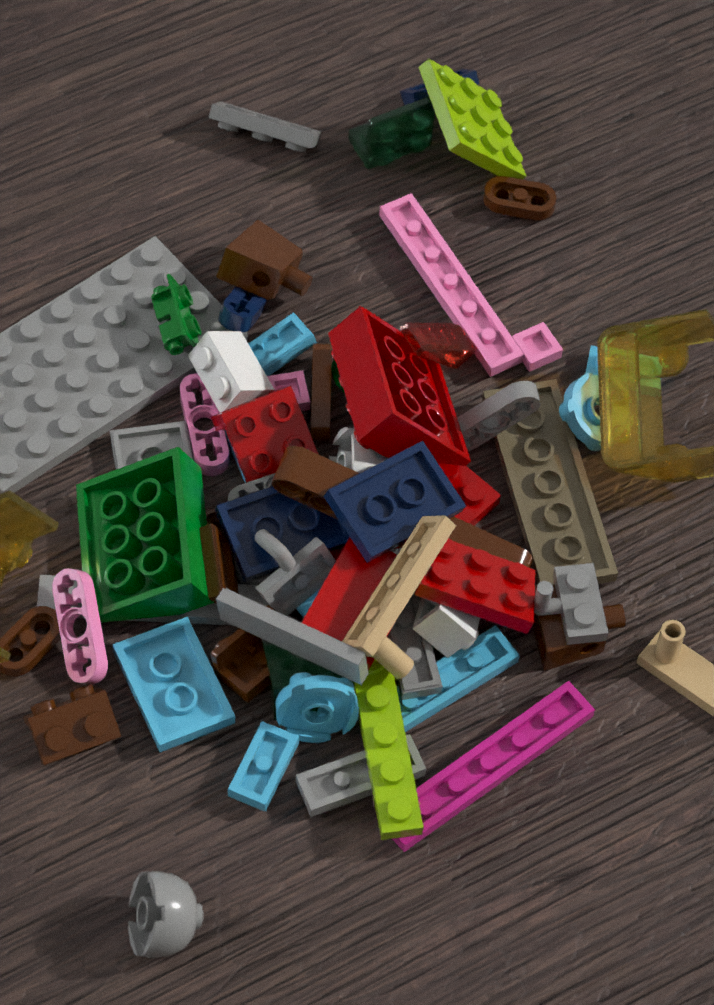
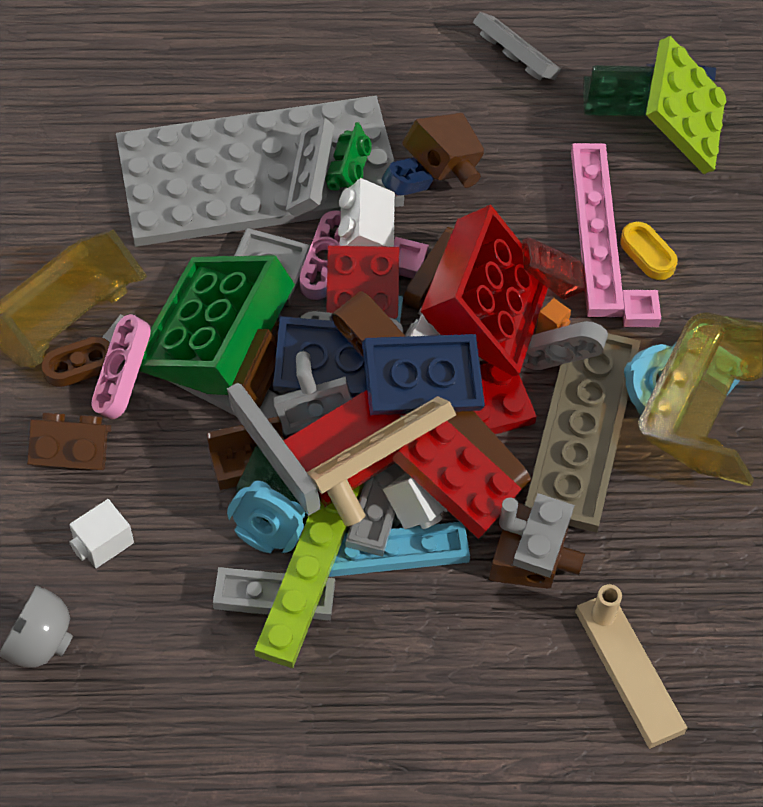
camera: 30 degrees right, 0 degrees up
(144, 341) = (310, 167): none -> light grey plate
(163, 797) = (100, 534): none -> white brick
(173, 684) = (169, 448): medium azure plate -> none
(263, 766) = (199, 548): medium azure plate -> none
(282, 343) = (422, 218): medium azure plate -> none
(467, 393) = (553, 316): none -> orange piece
(498, 758) = (399, 635): dark pink plate -> none
(509, 285) = (648, 250): none -> yellow tile
(519, 198) = (700, 185): reddish brown plate -> none

